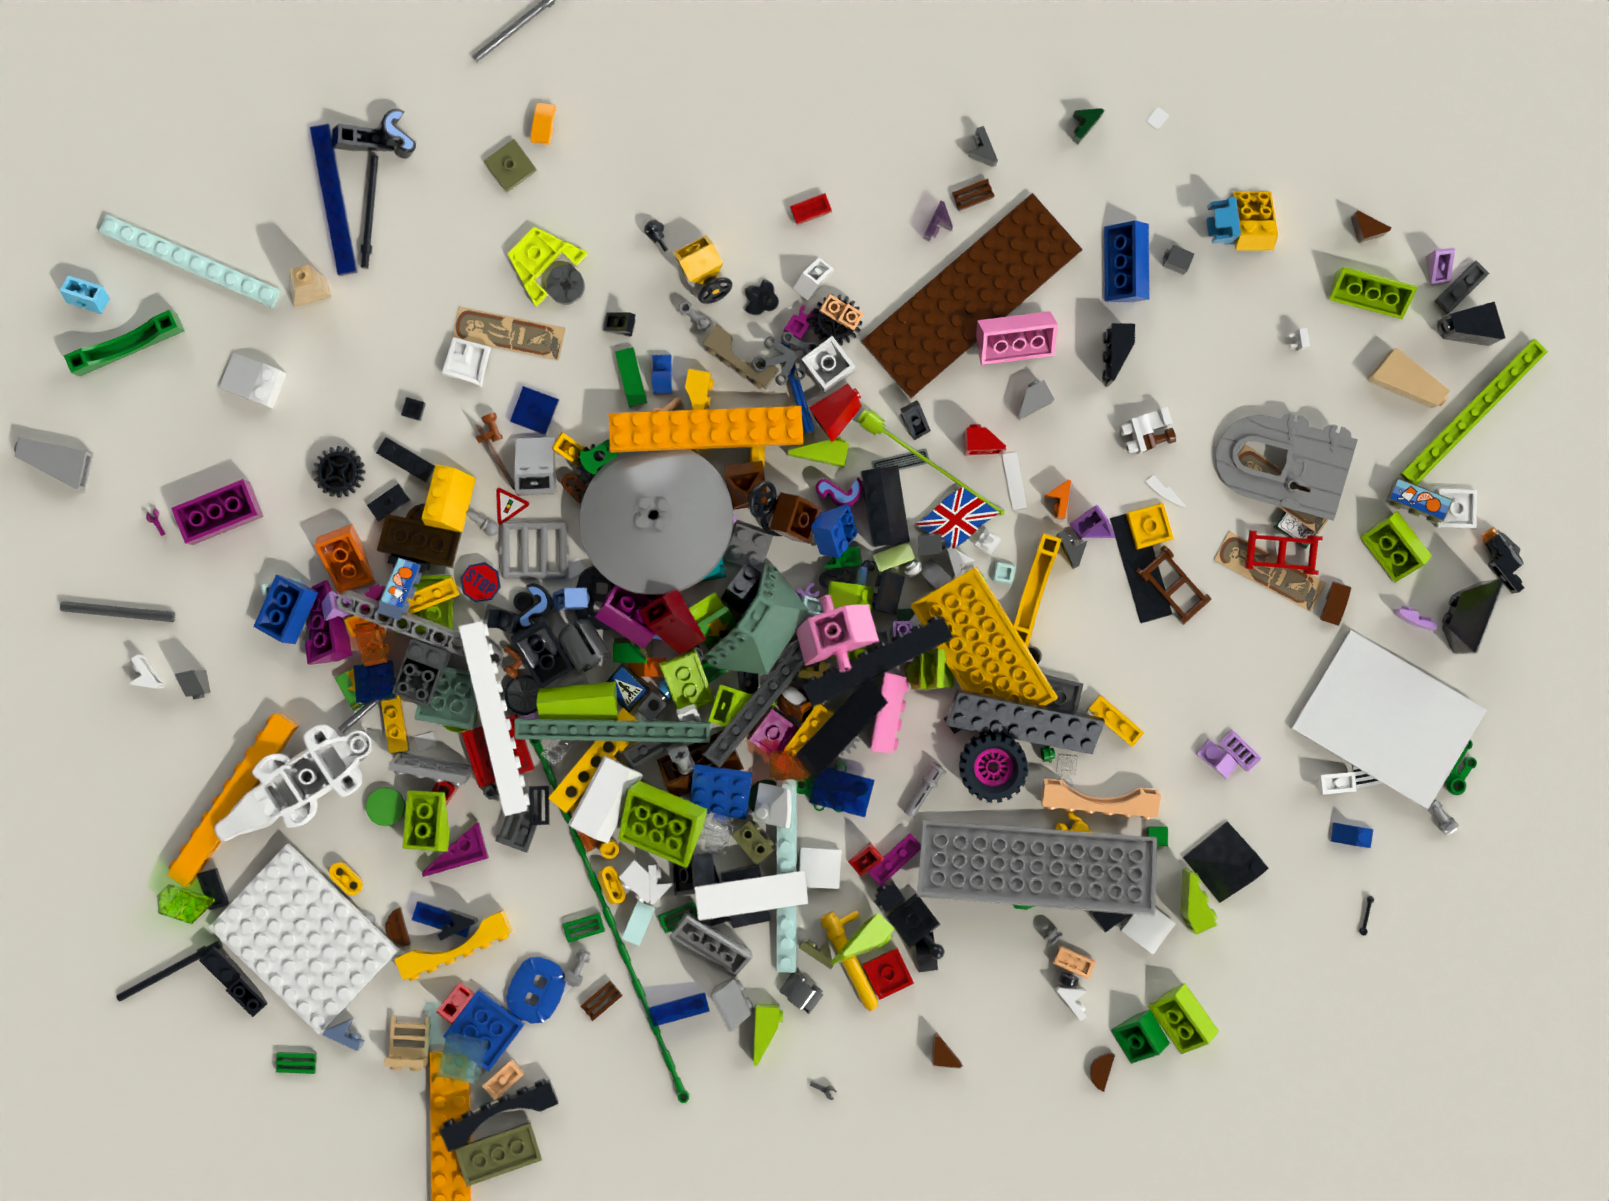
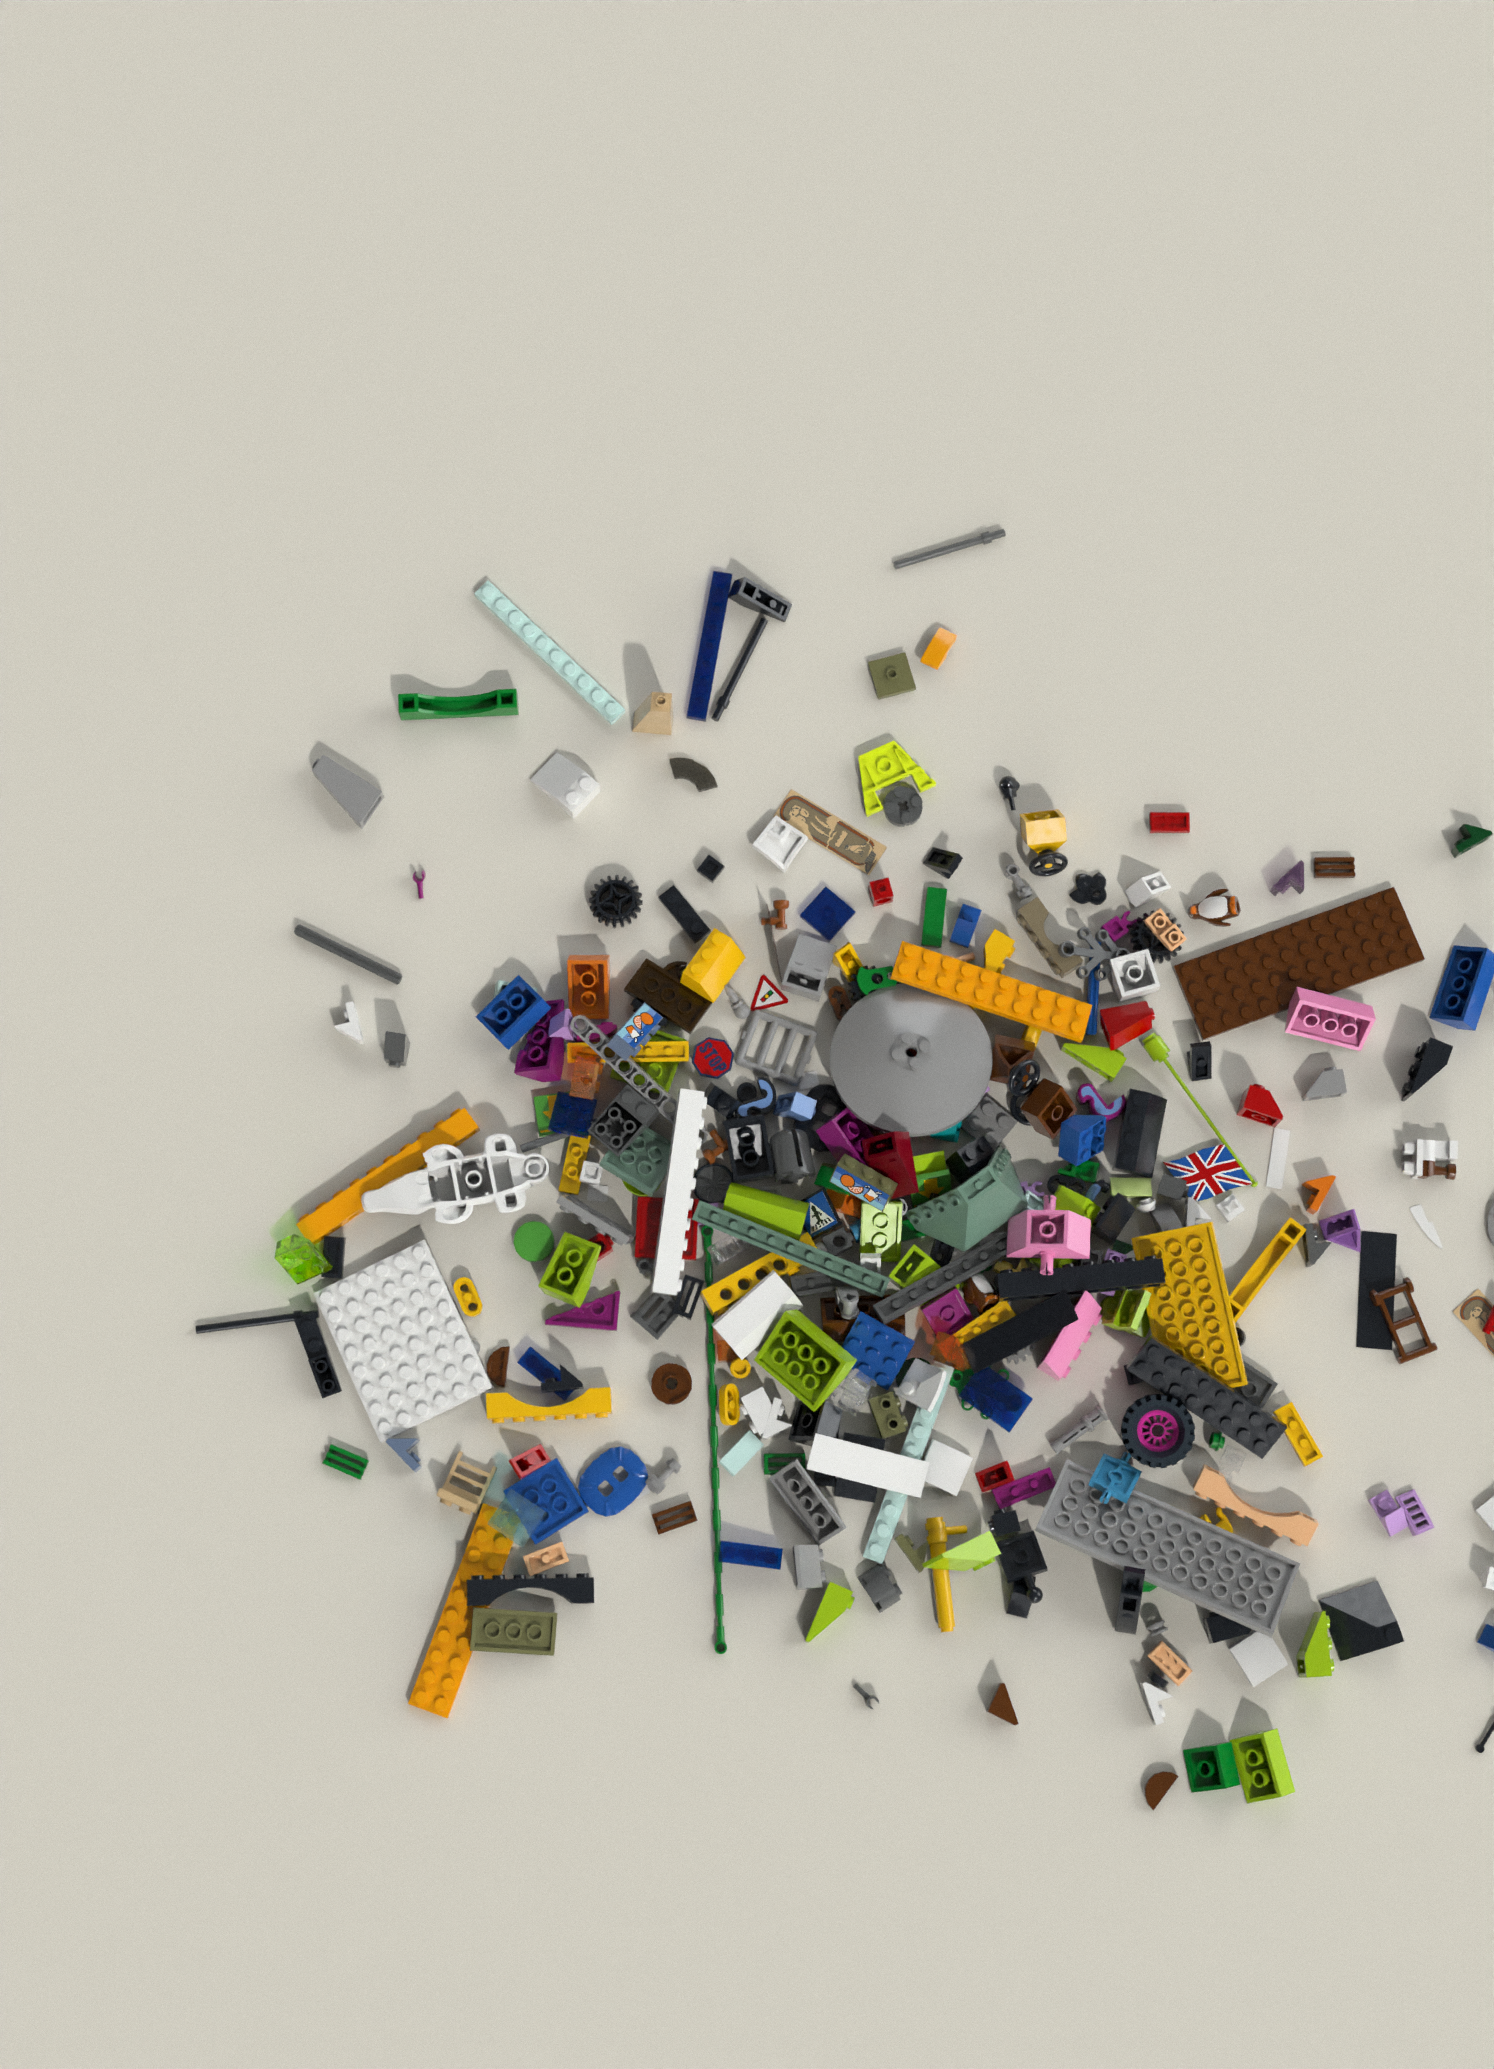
camera: 20 degrees right, 10 degrees down
(84, 294) = (439, 646): medium azure brick -> none
(217, 512) = (484, 895): magenta brick -> none
(364, 324) = (694, 772): none -> clear smoke tile
(388, 502) = (651, 948): black plate -> none
(393, 136) = (791, 607): black animal -> none
(411, 728) = (591, 1173): none -> white tile
(543, 886) = (683, 1384): none -> reddish brown plate
(574, 372) = (880, 892): none -> red brick
(599, 922) = (685, 1437): green tile -> none
(654, 648) = (863, 1182): none -> brick
(880, 274) = (1216, 908): none -> animal
(888, 973) = (975, 1601): red plate -> none
(902, 461) = (1174, 1098): sticker -> none
(970, 823) = (1115, 1478): none -> dark azure plate
(985, 153) = (1361, 831): dark grey slope -> none
(1004, 573) = (1235, 1245): light aqua tile -> none
(1020, 925) = (1130, 1600): none -> black slope
(1149, 526) = (1399, 1253): yellow tile -> none
(1160, 832) = (1304, 1569): green tile -> none

